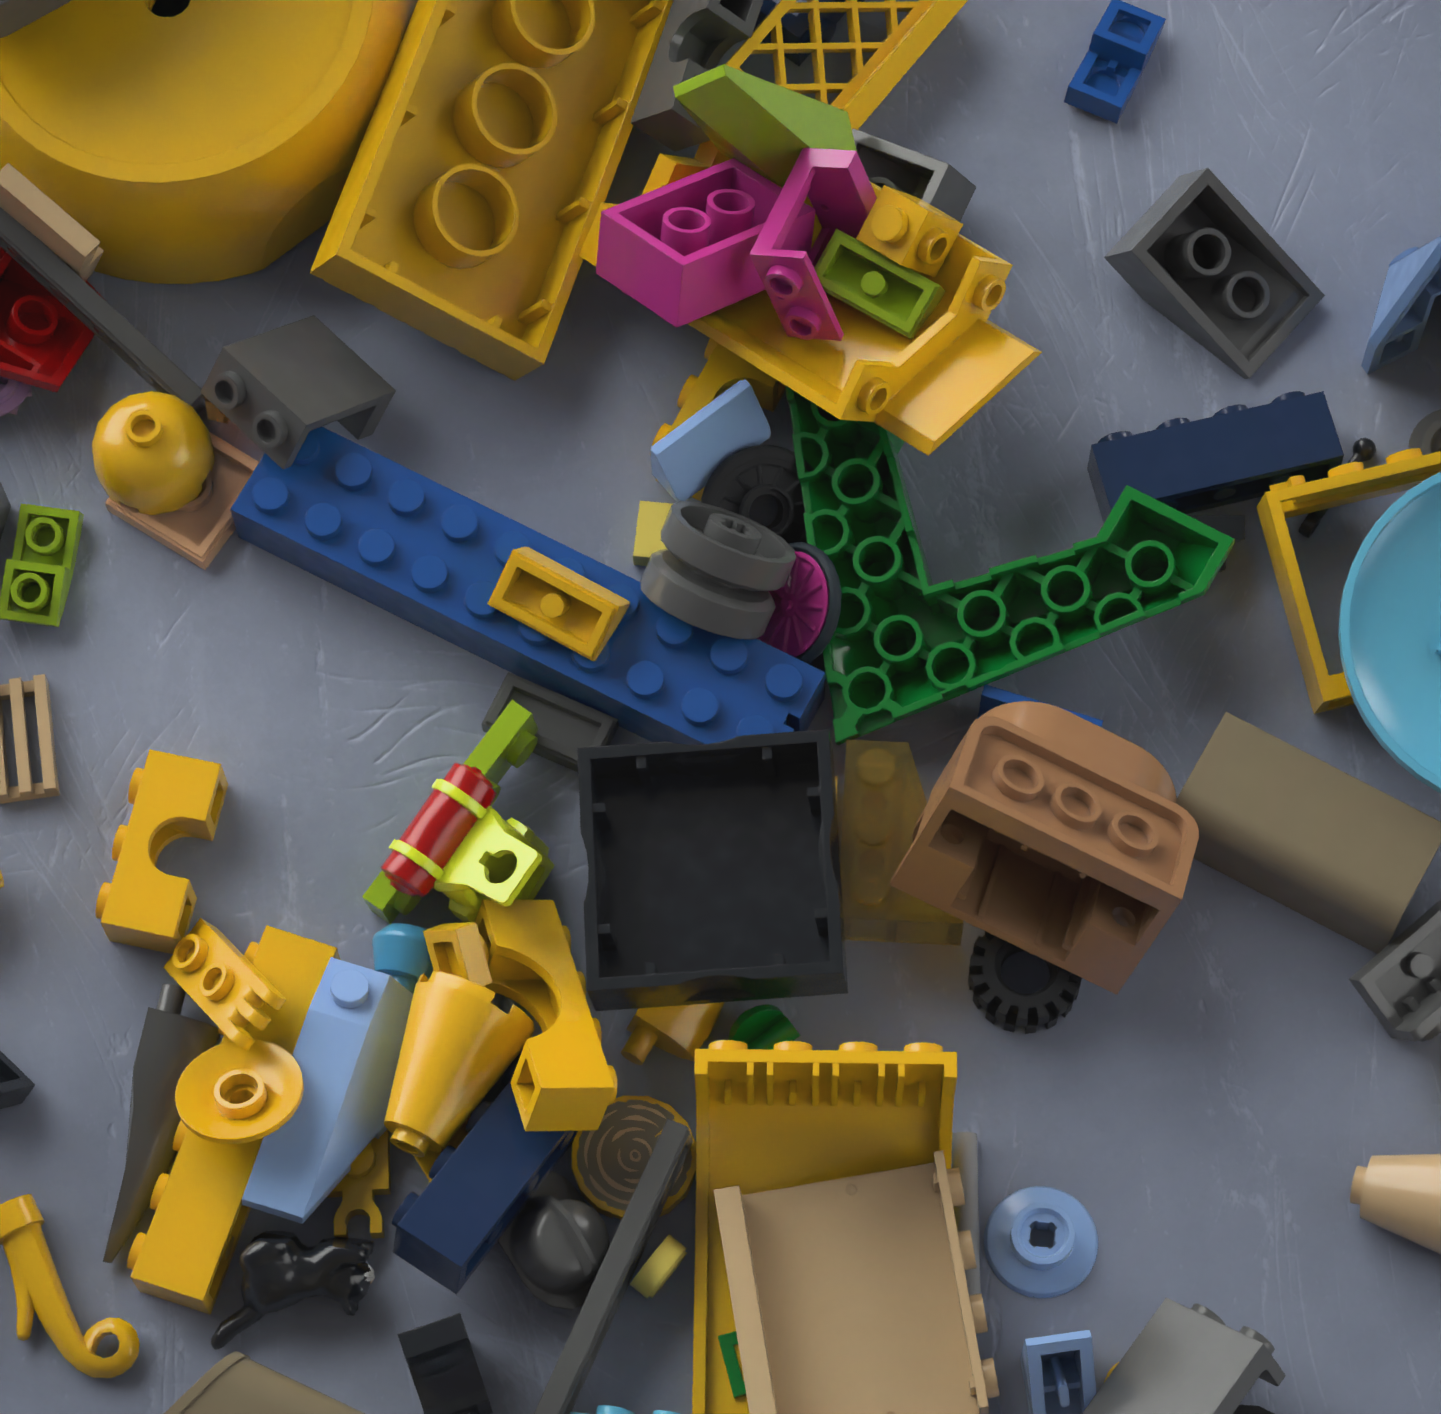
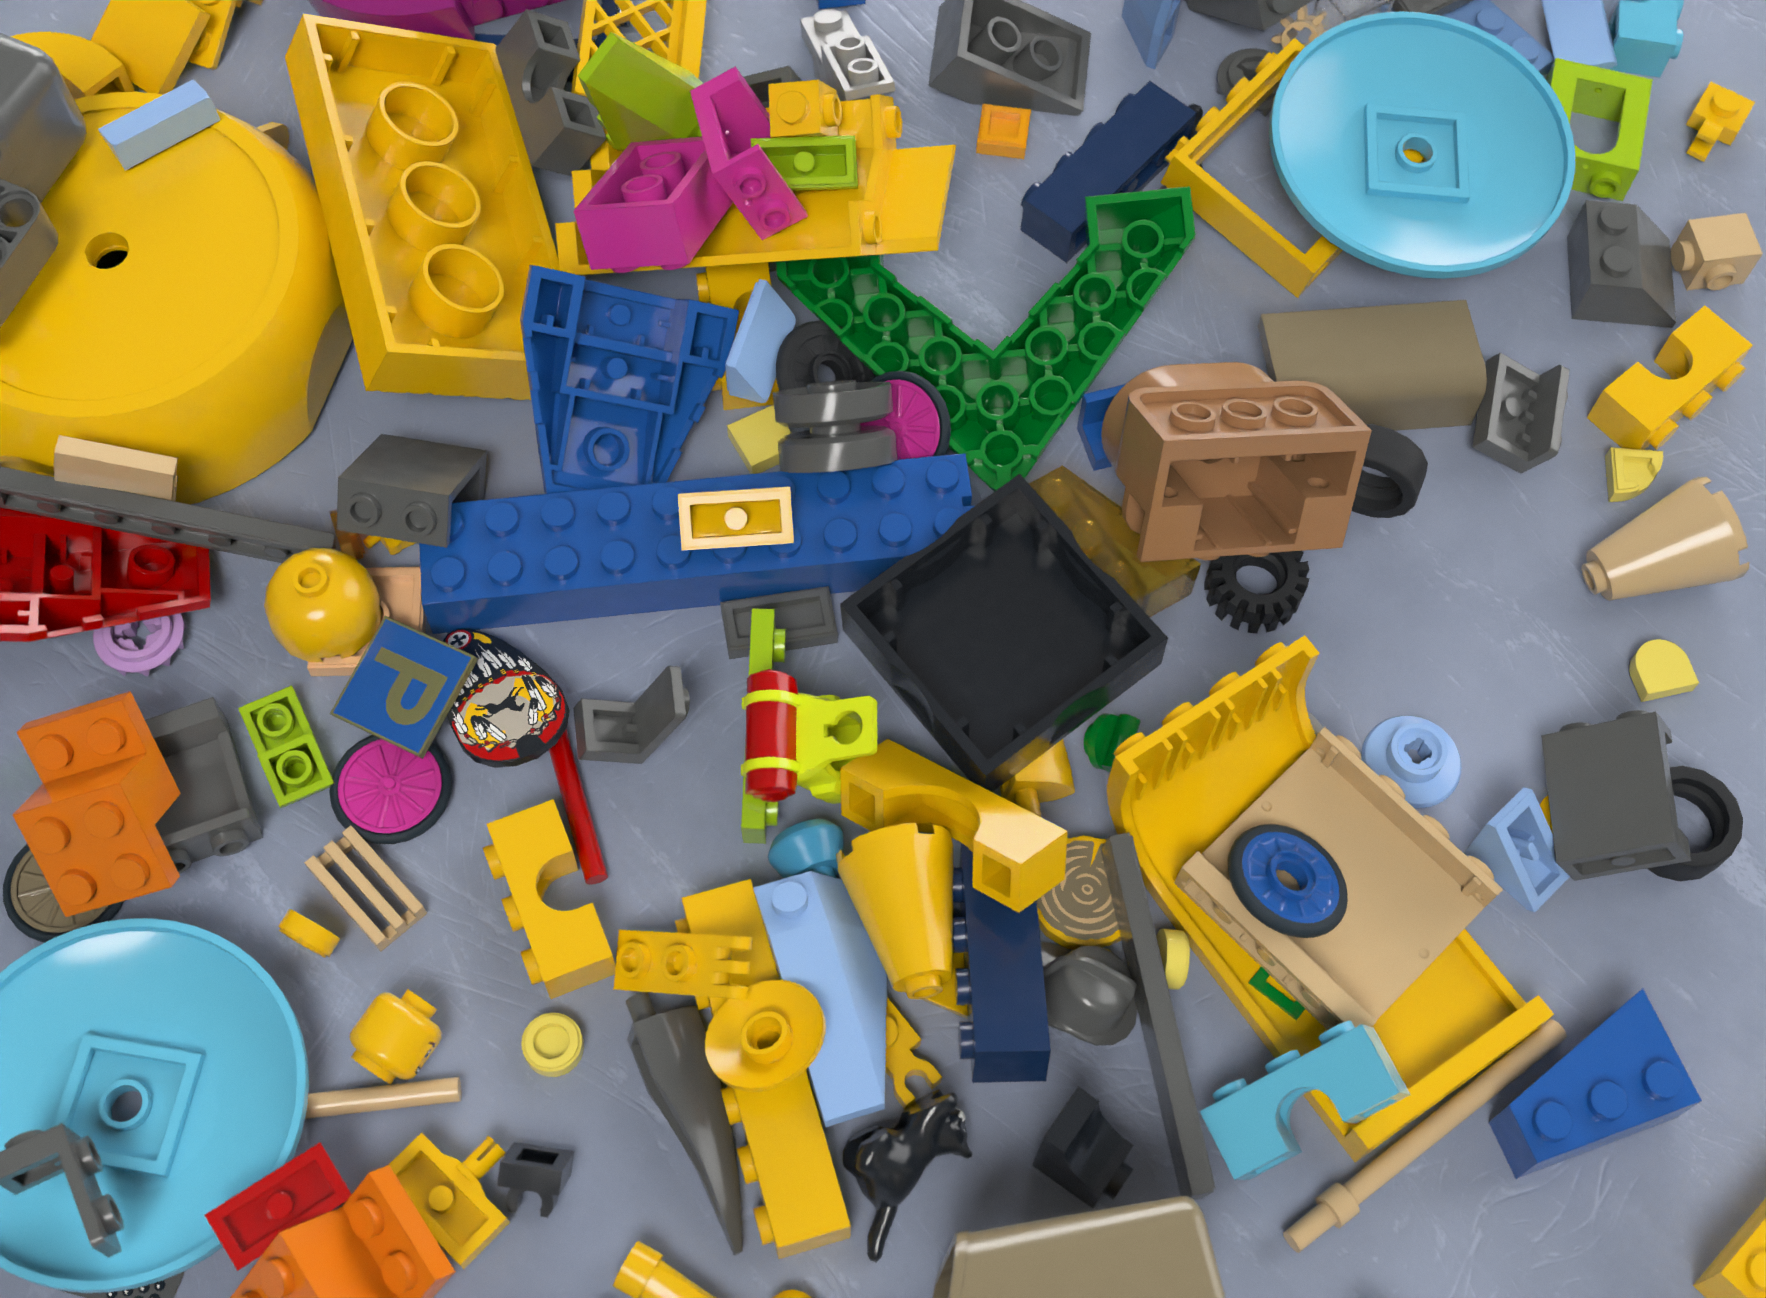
camera: 40 degrees left, 5 degrees down
(81, 981) = (552, 1044): none -> light yellow tile
(103, 660) = (389, 791): none -> dark pink wheel
(171, 574) = (404, 686): none -> blue piece
(242, 639) = (507, 705): none -> shield
(249, 777) = (578, 811): none -> red bar
(336, 737) = (628, 729): none -> dark grey bracket
(459, 951) = (851, 815): yellow plate -> none
(551, 394) = (616, 377): none -> blue wedge
(768, 1273) = (1294, 913): none -> blue wheel
(1028, 182) = (844, 57): none -> light grey slope
(1149, 351) = (1003, 131): none -> light orange tile
(1217, 940) = (1402, 462): none -> black tyre
(1356, 1318) = (1661, 670): none -> light yellow tile

